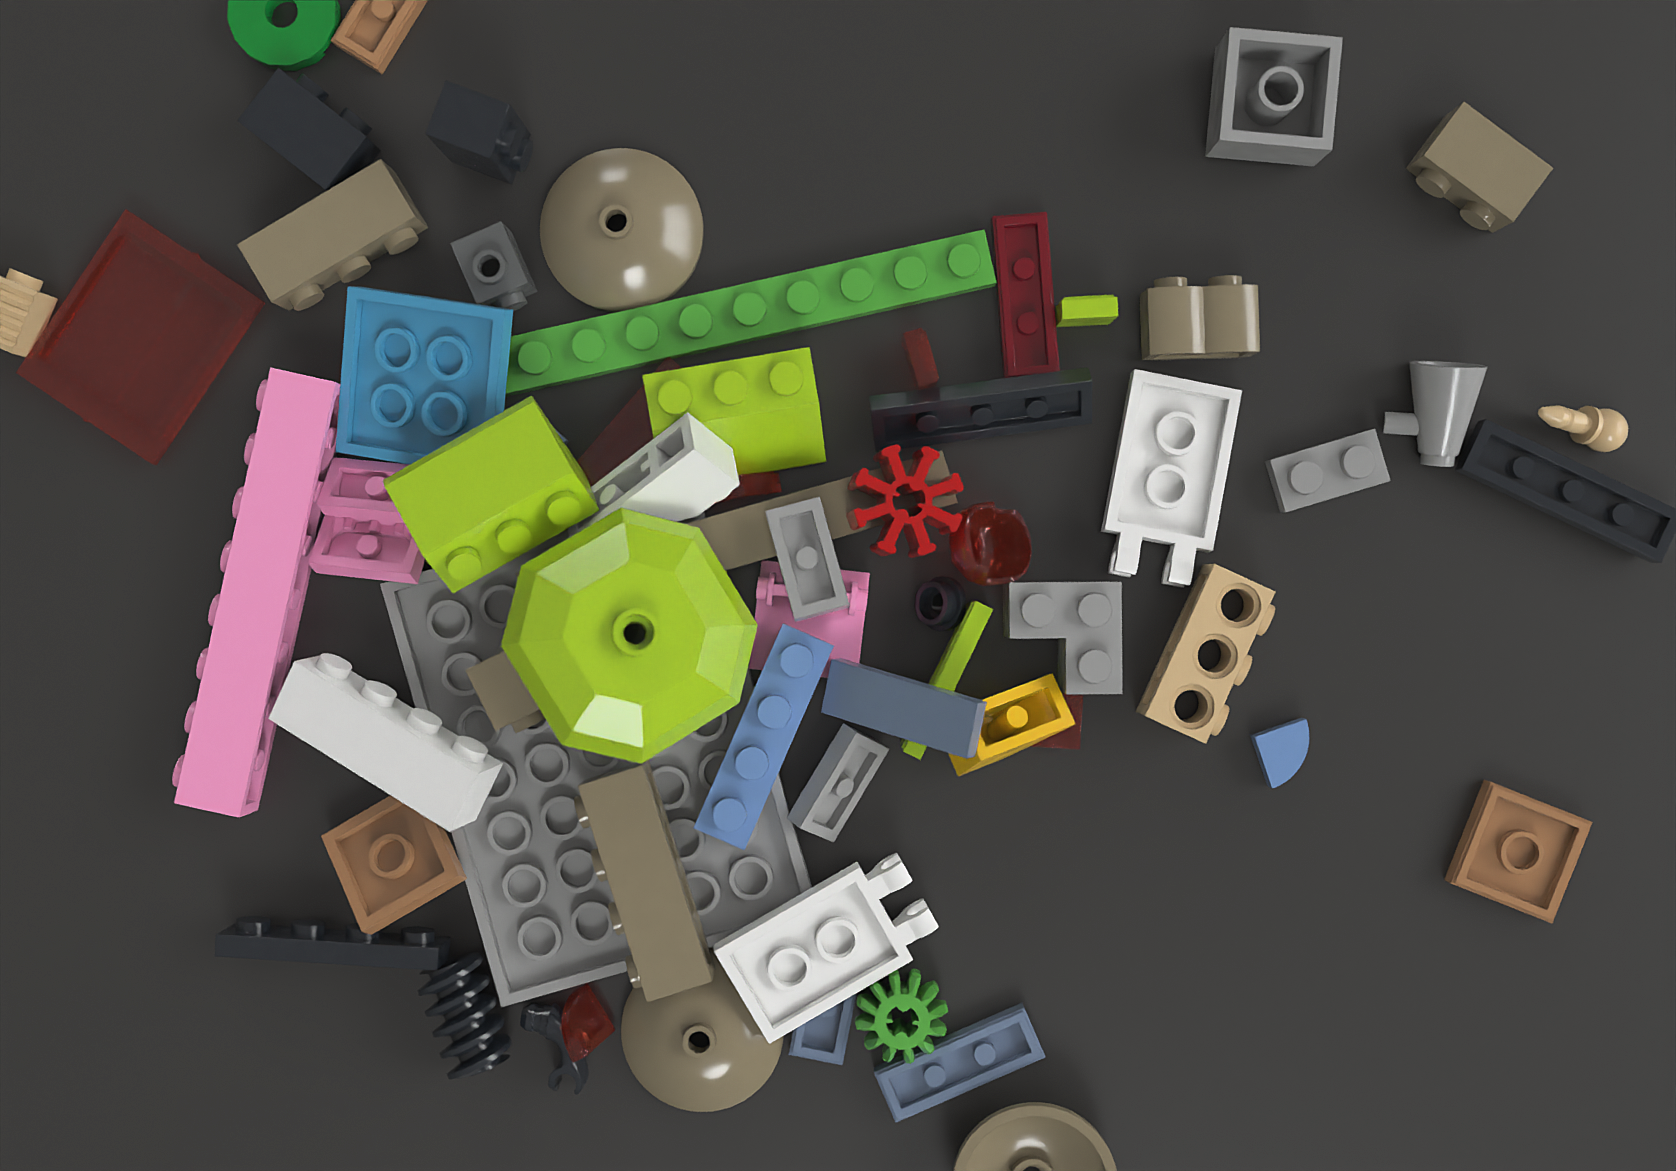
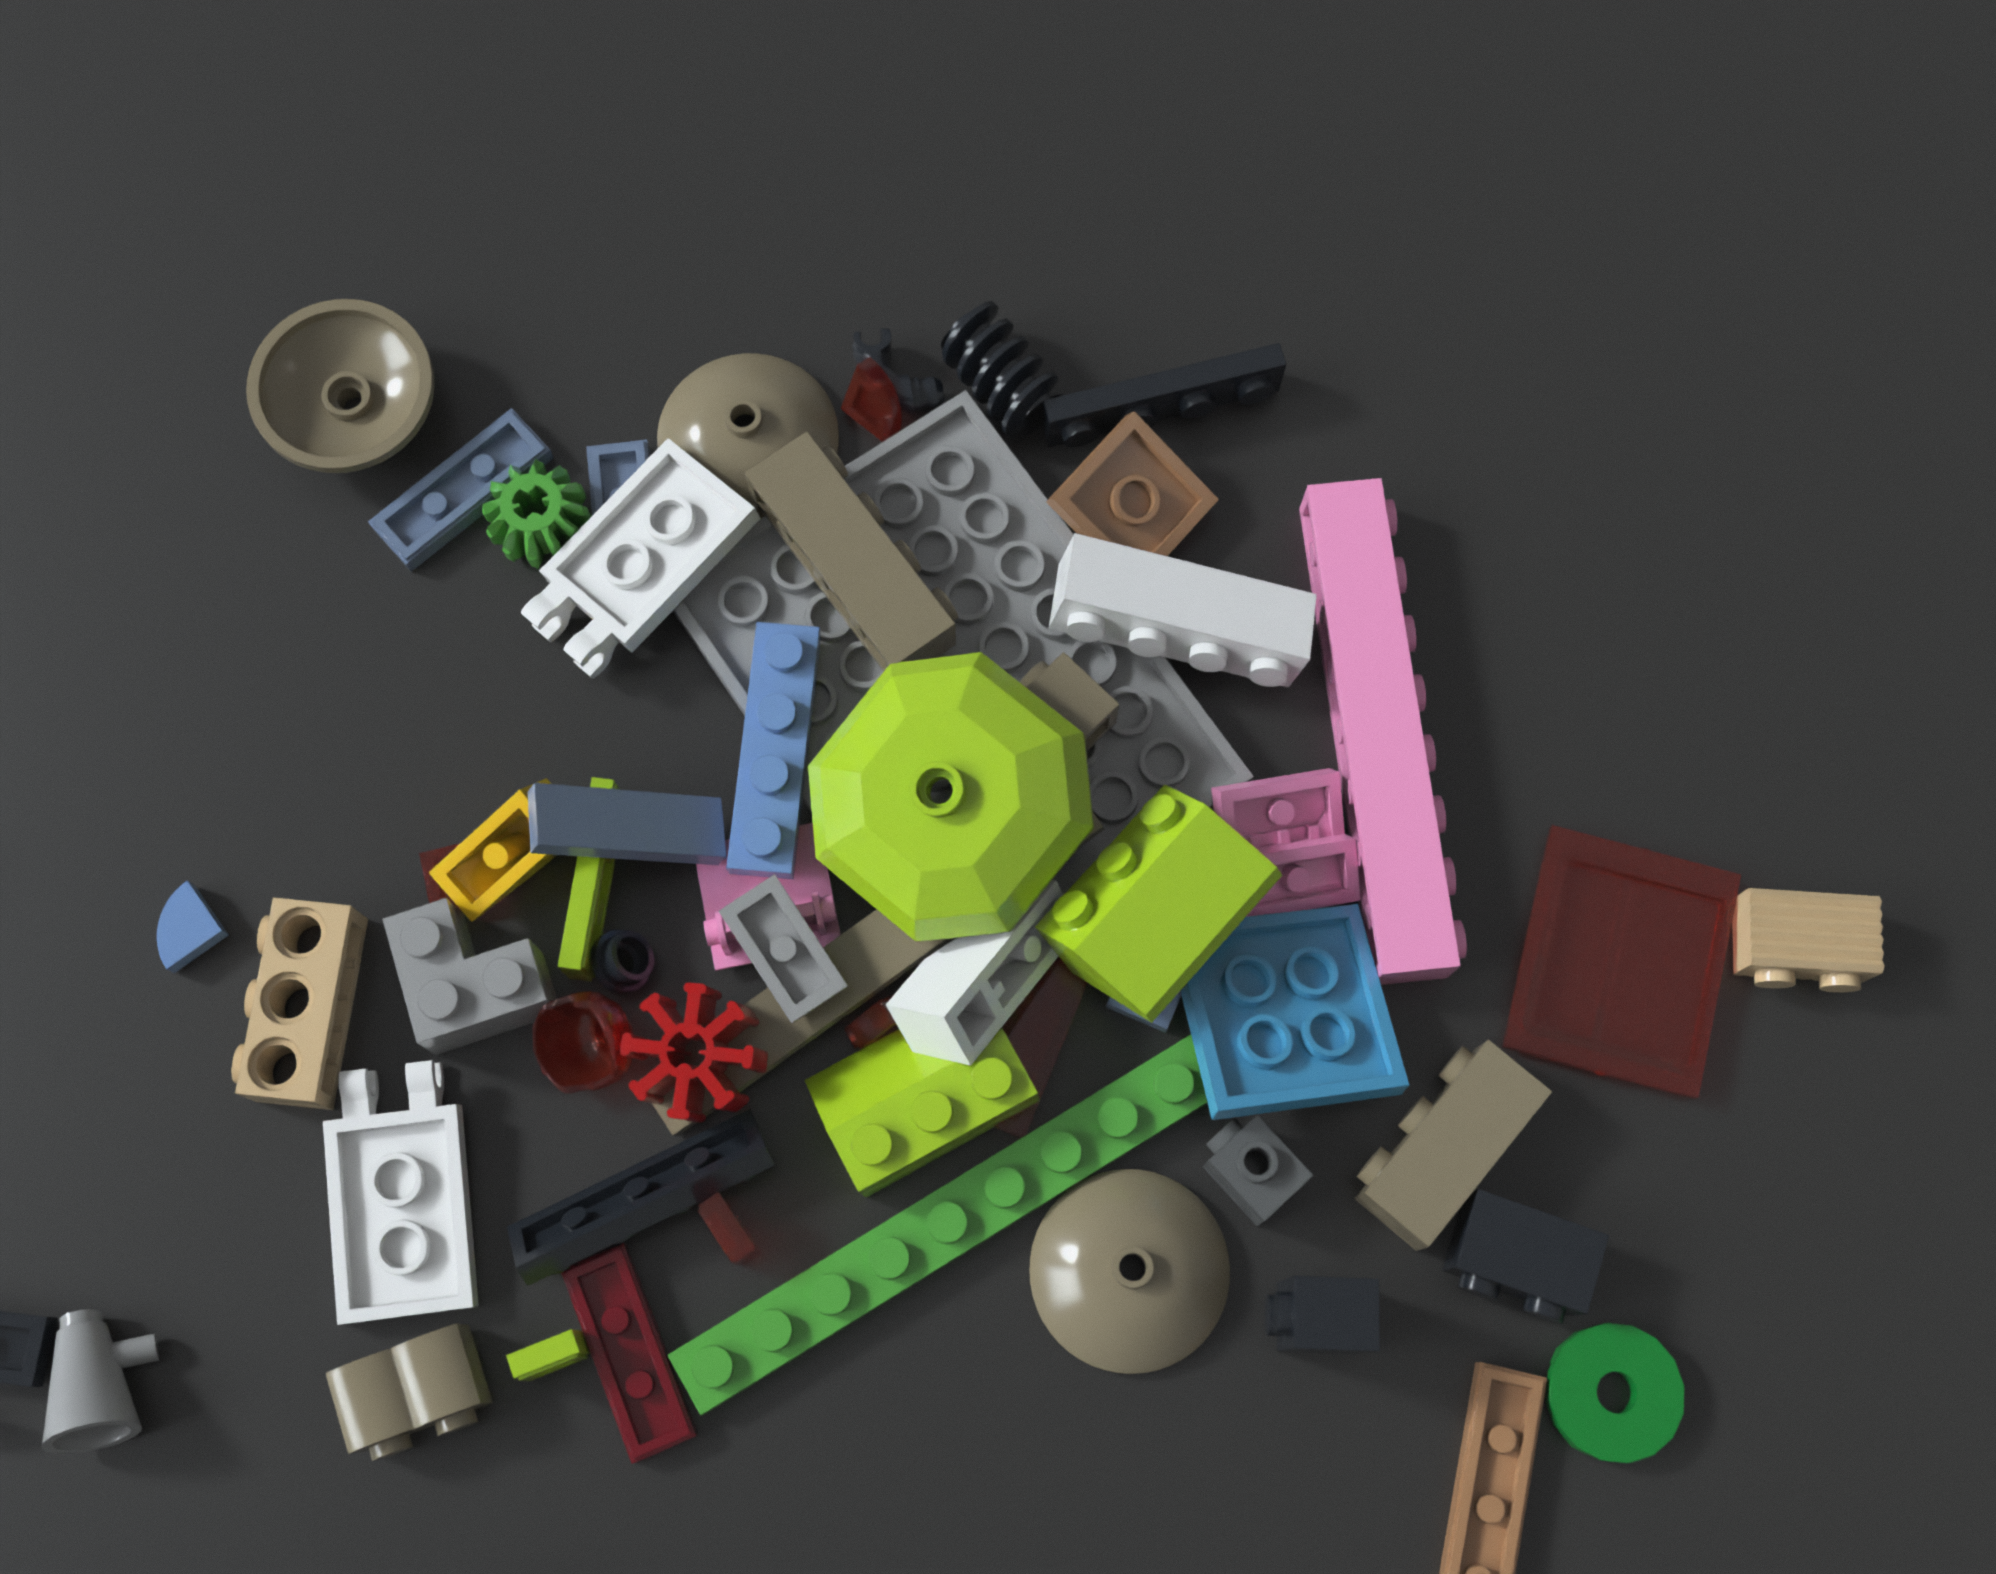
camera: 165 degrees right, 15 degrees down
(838, 783) = (679, 729): light grey plate -> none
(1327, 471) = (211, 1265): light grey plate -> none

